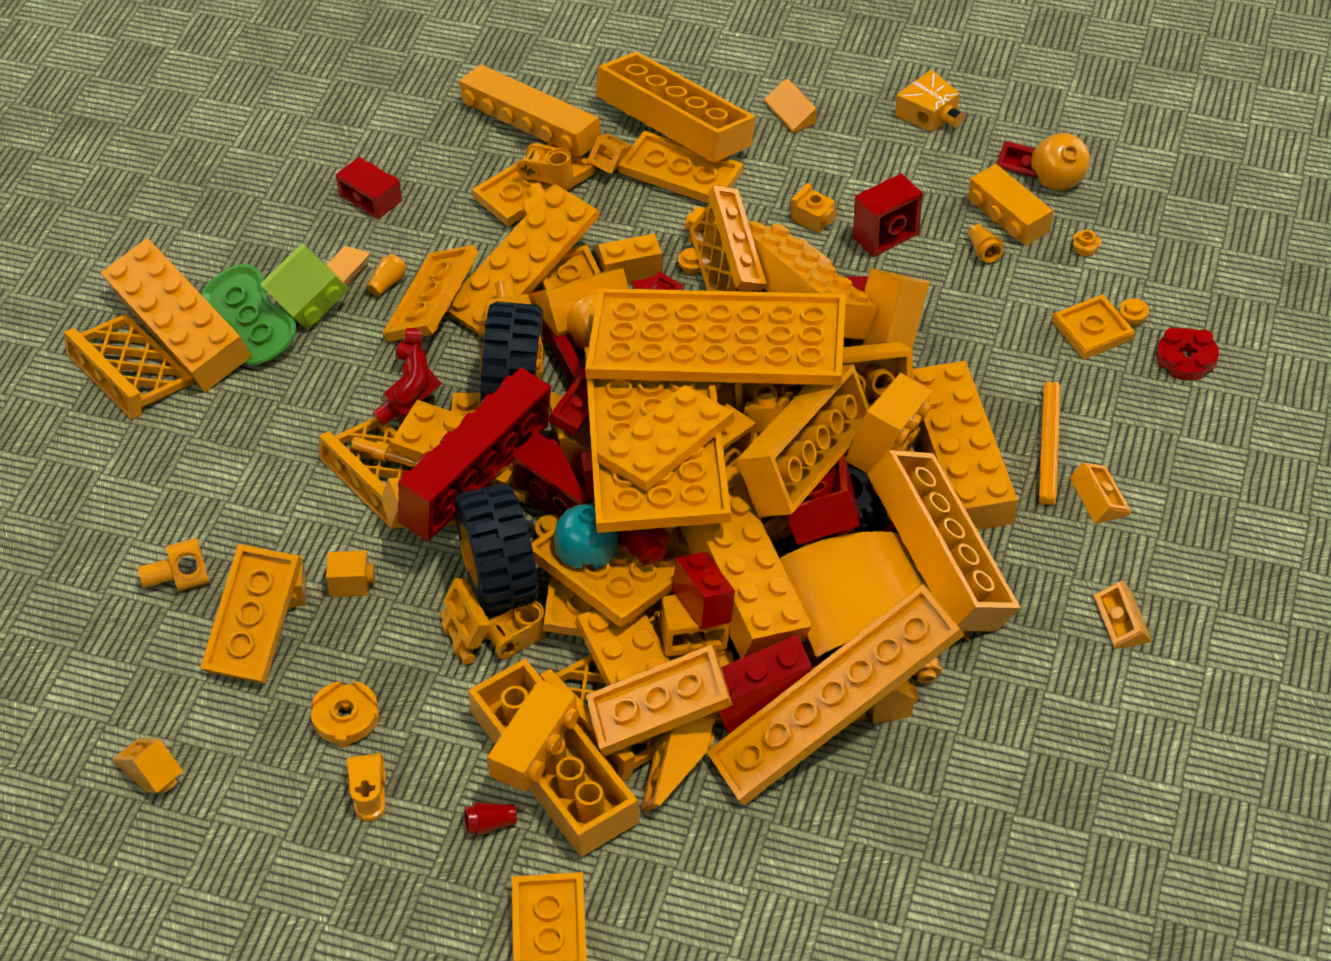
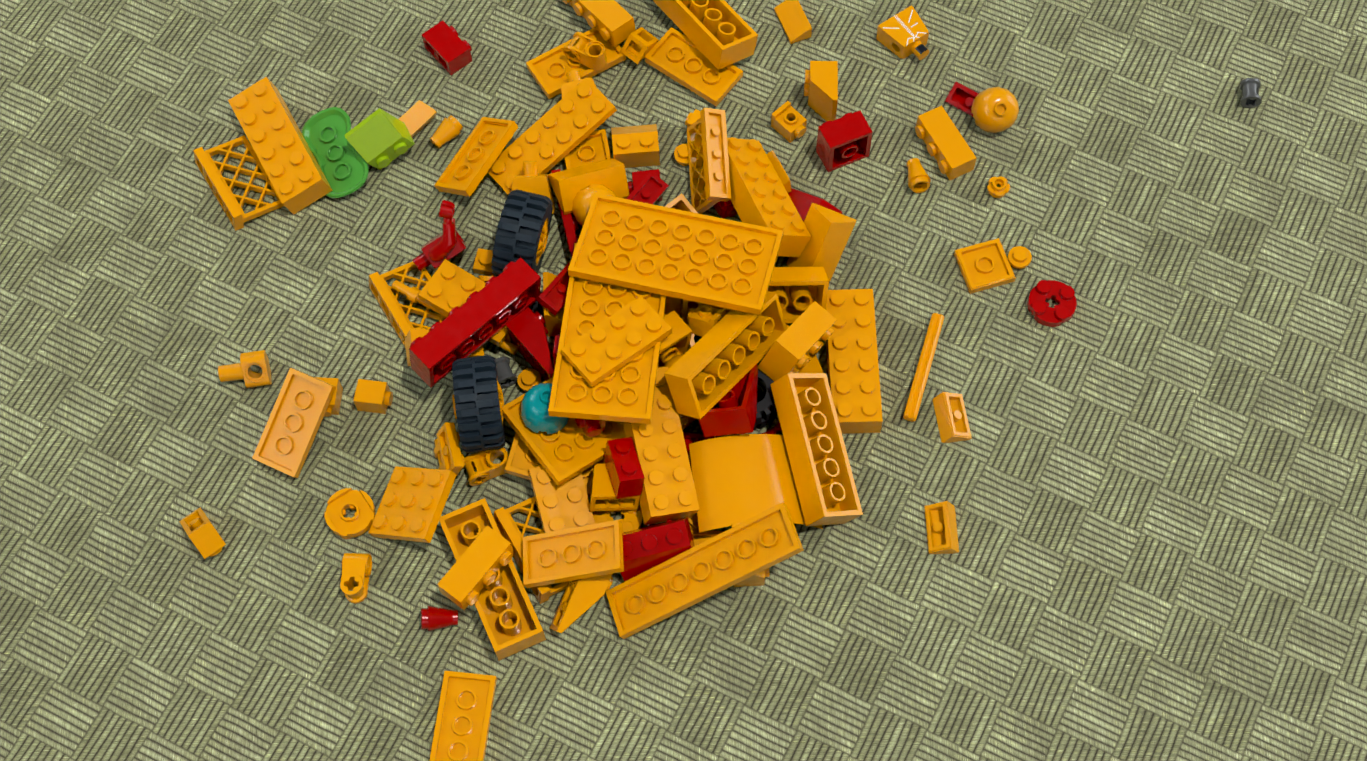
camera: 10 degrees right, 15 degrees up
(428, 684) = (412, 504): none -> light orange plate
(846, 163) = (822, 88): none -> light orange slope

